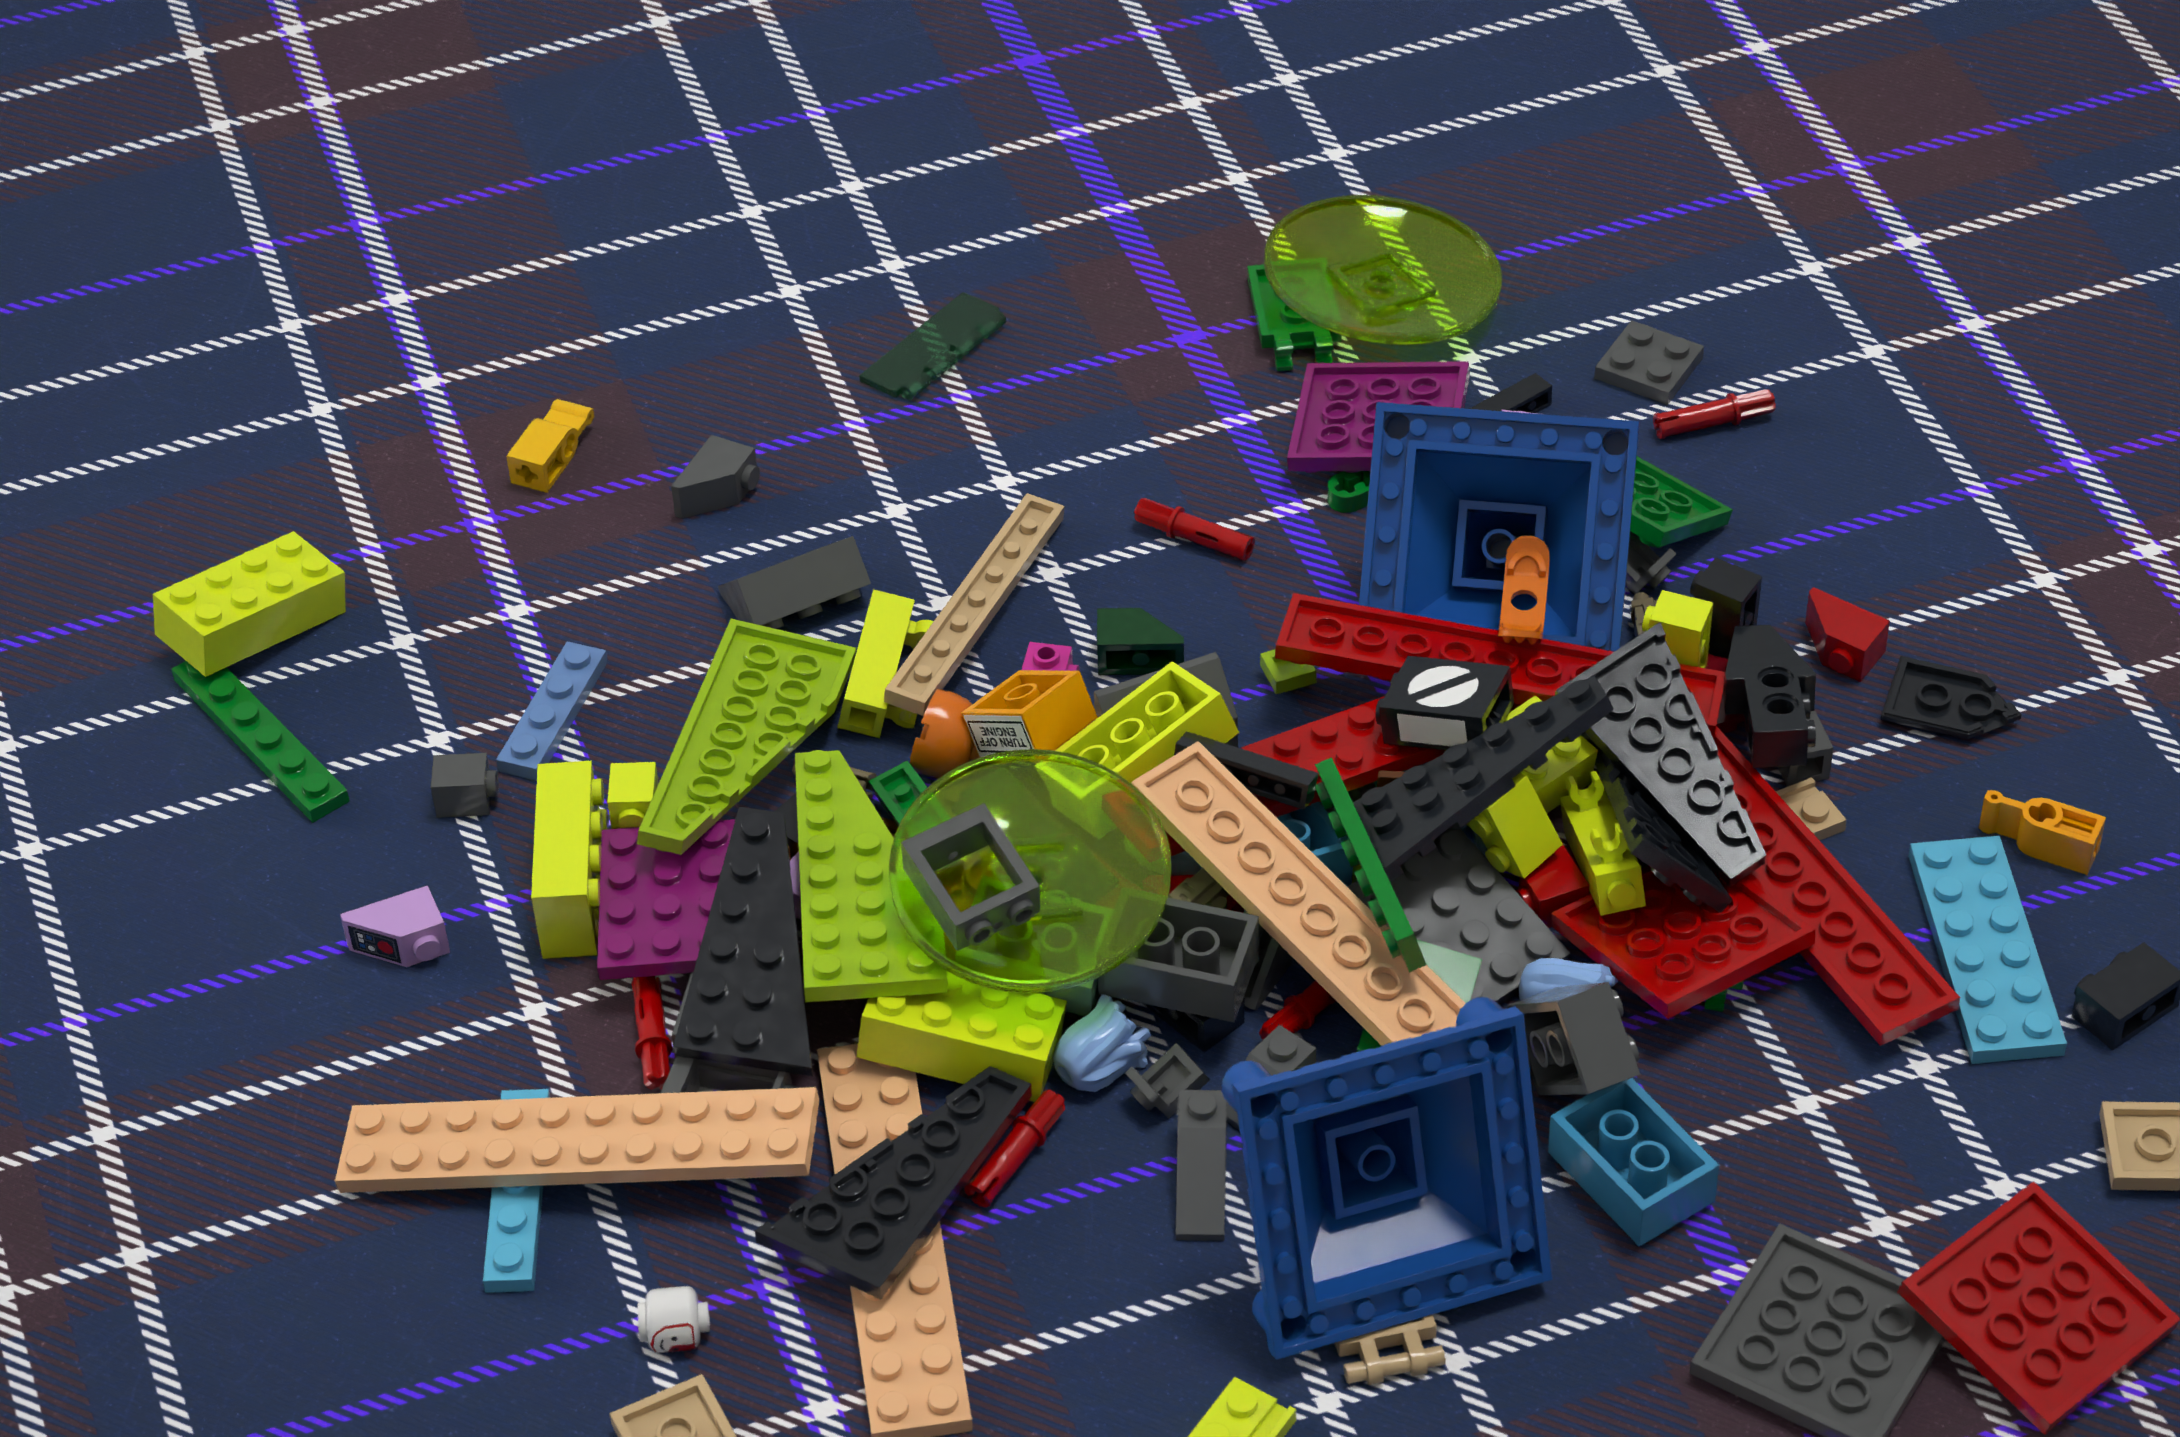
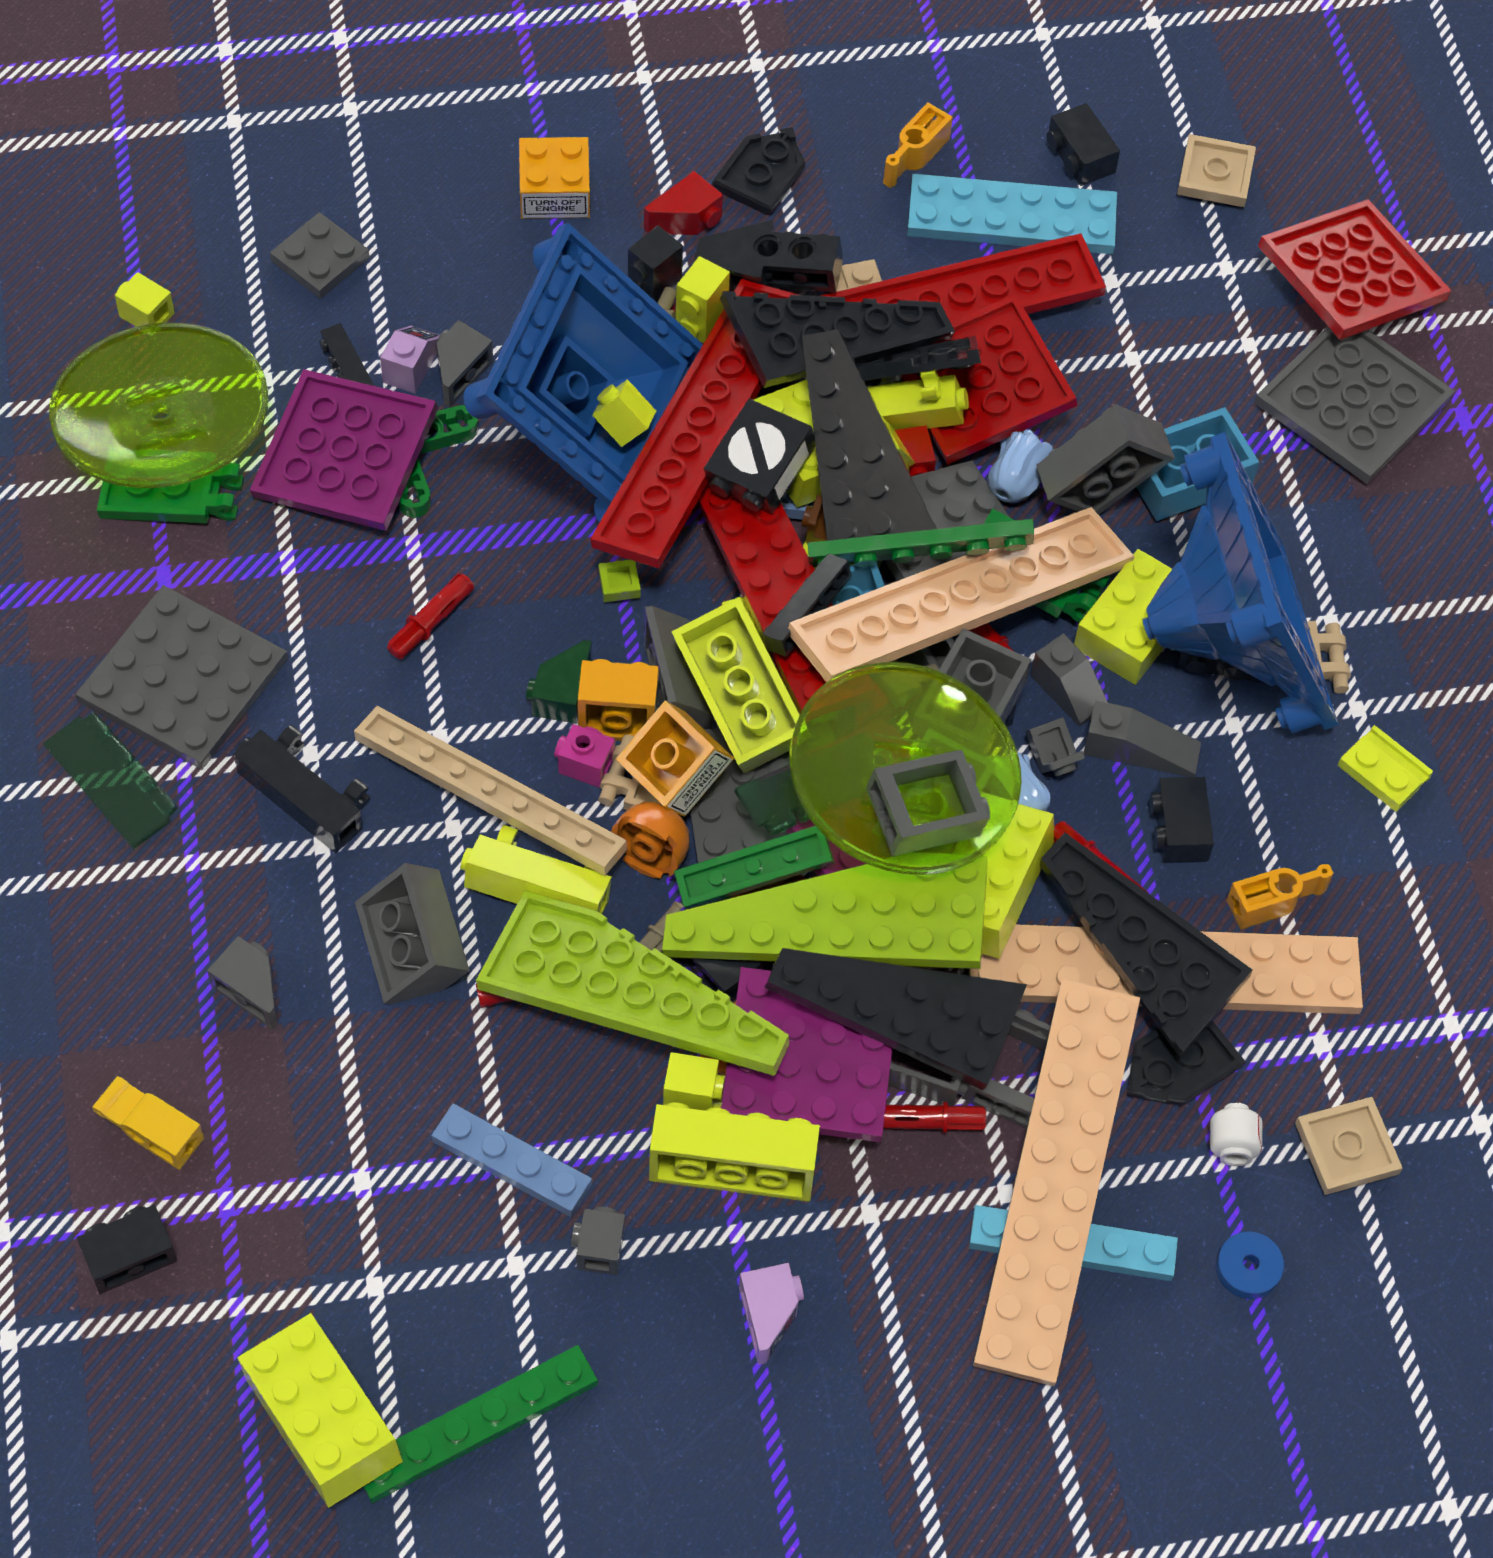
camera: 85 degrees left, 15 degrees up
(413, 453) = (126, 1248): none -> black brick
(512, 1377) = (1246, 1282): none -> blue piece
(760, 1276) = (1166, 1077): none -> black tile
(946, 469) = (298, 790): none -> black brick
(1010, 1322) = (1260, 899): none -> light orange piece
(1068, 370) = (182, 677): none -> dark grey plate
(1097, 1219) = (1182, 820): none -> black brick
(1109, 651) = (617, 696): none -> light orange brick
(1475, 589) = (623, 412): none -> neon yellow brick
(1520, 242) = (143, 301): none -> neon yellow brick
(1528, 574) = (672, 390): orange piece -> none
(1670, 509) = (493, 292): green plate -> none
(1714, 413) = (401, 214): red axle -> none
(1834, 515) = (554, 177): none -> light orange brick

